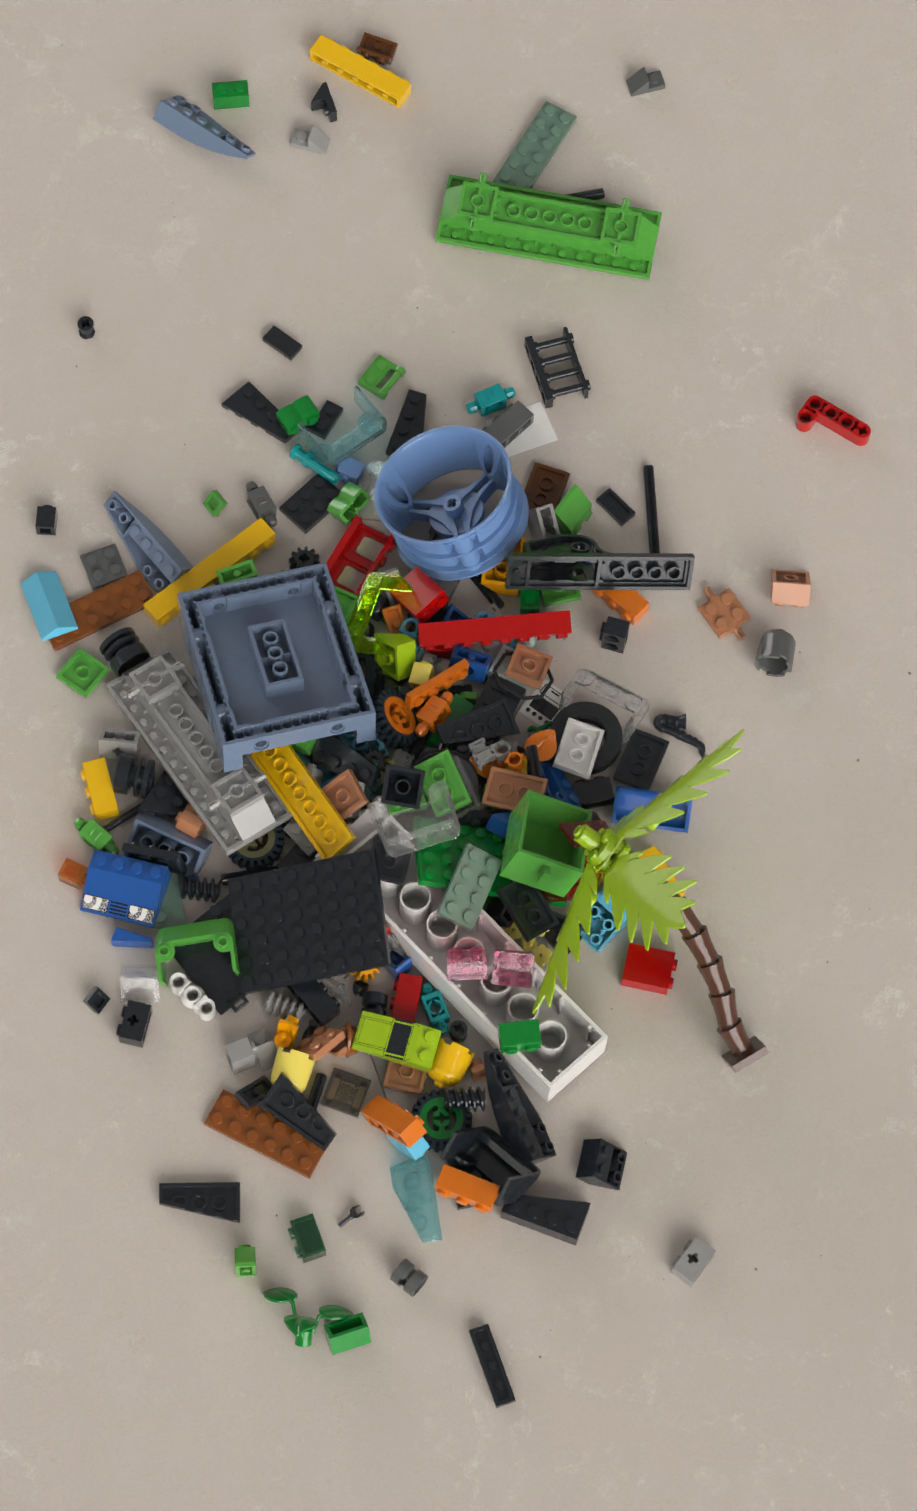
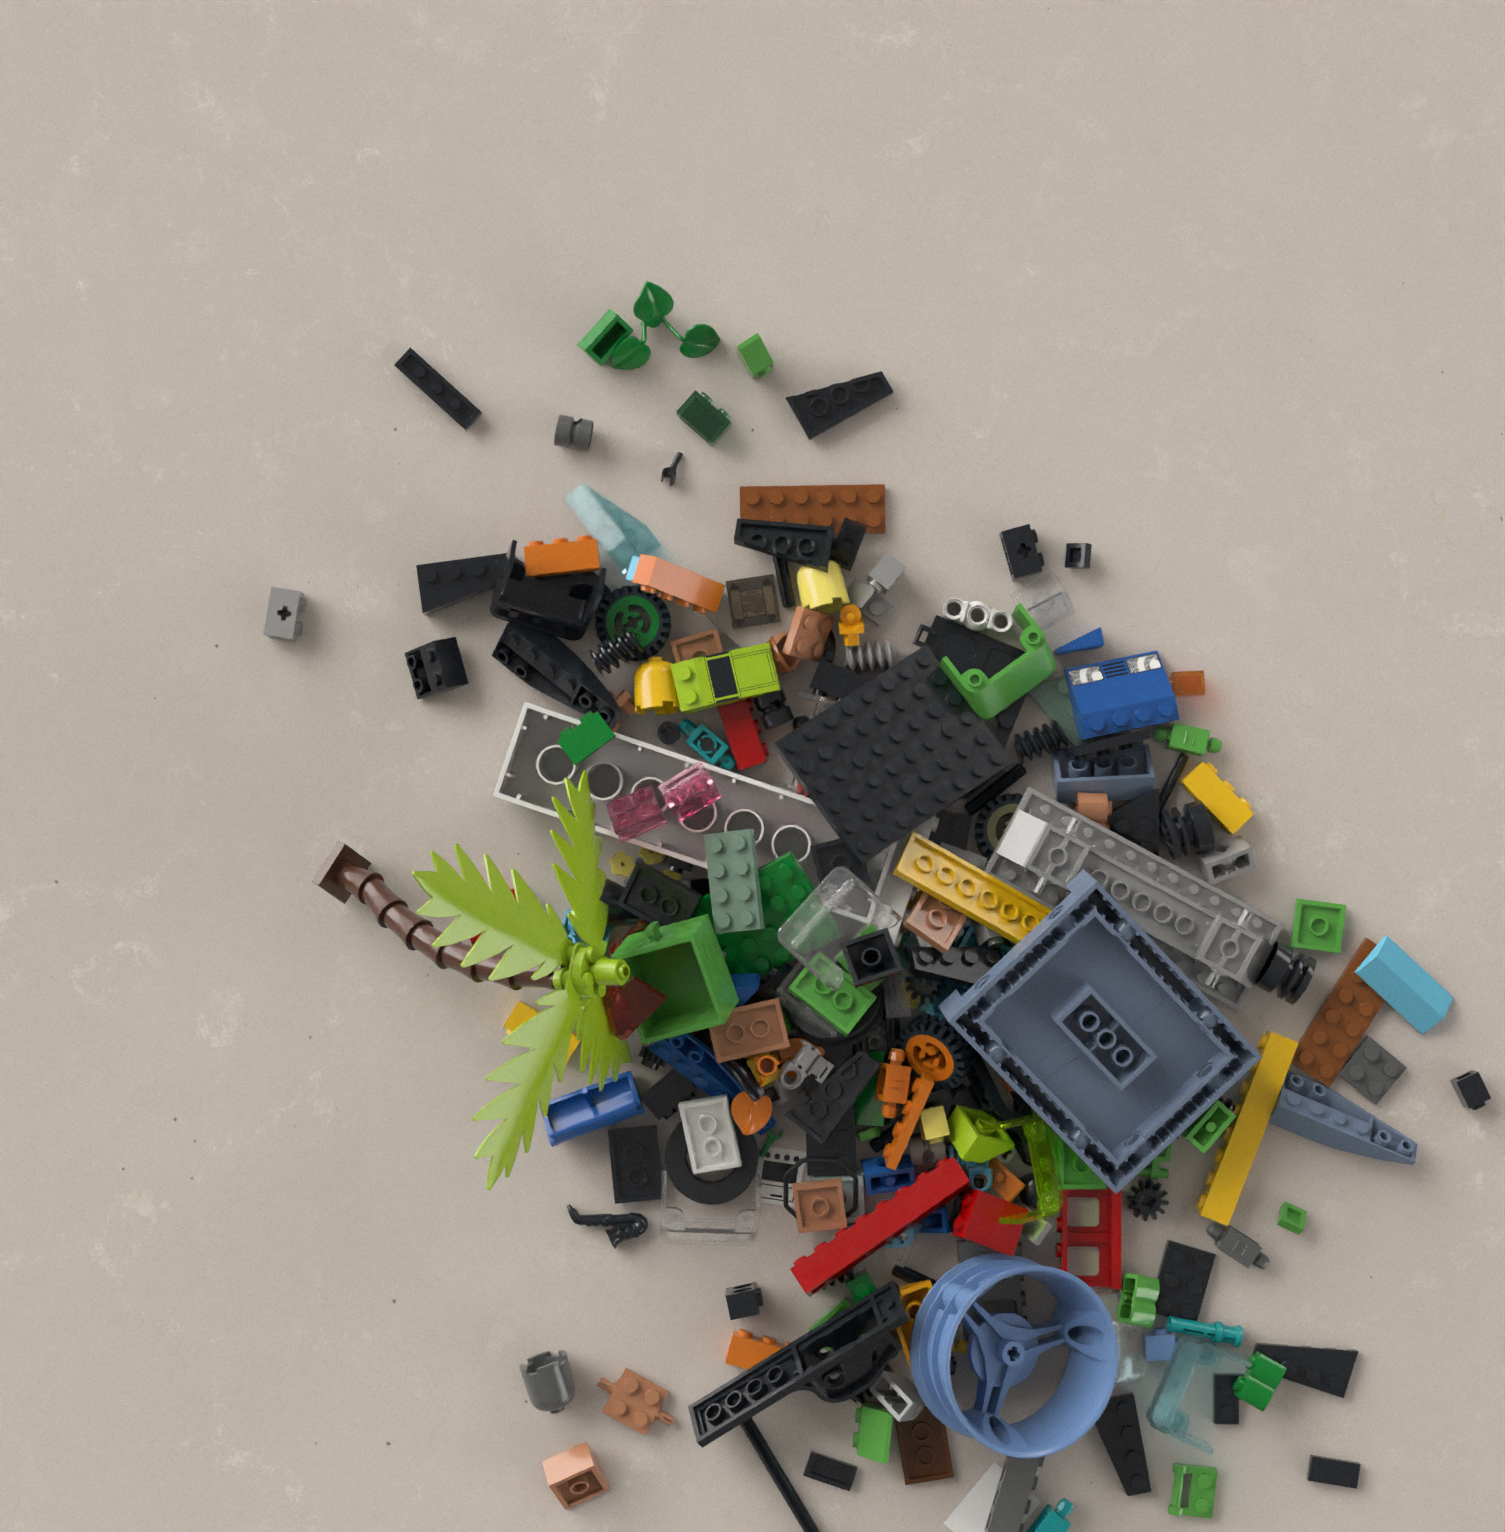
camera: 155 degrees right, 20 degrees up
(399, 964) = (776, 771): blue slope -> none

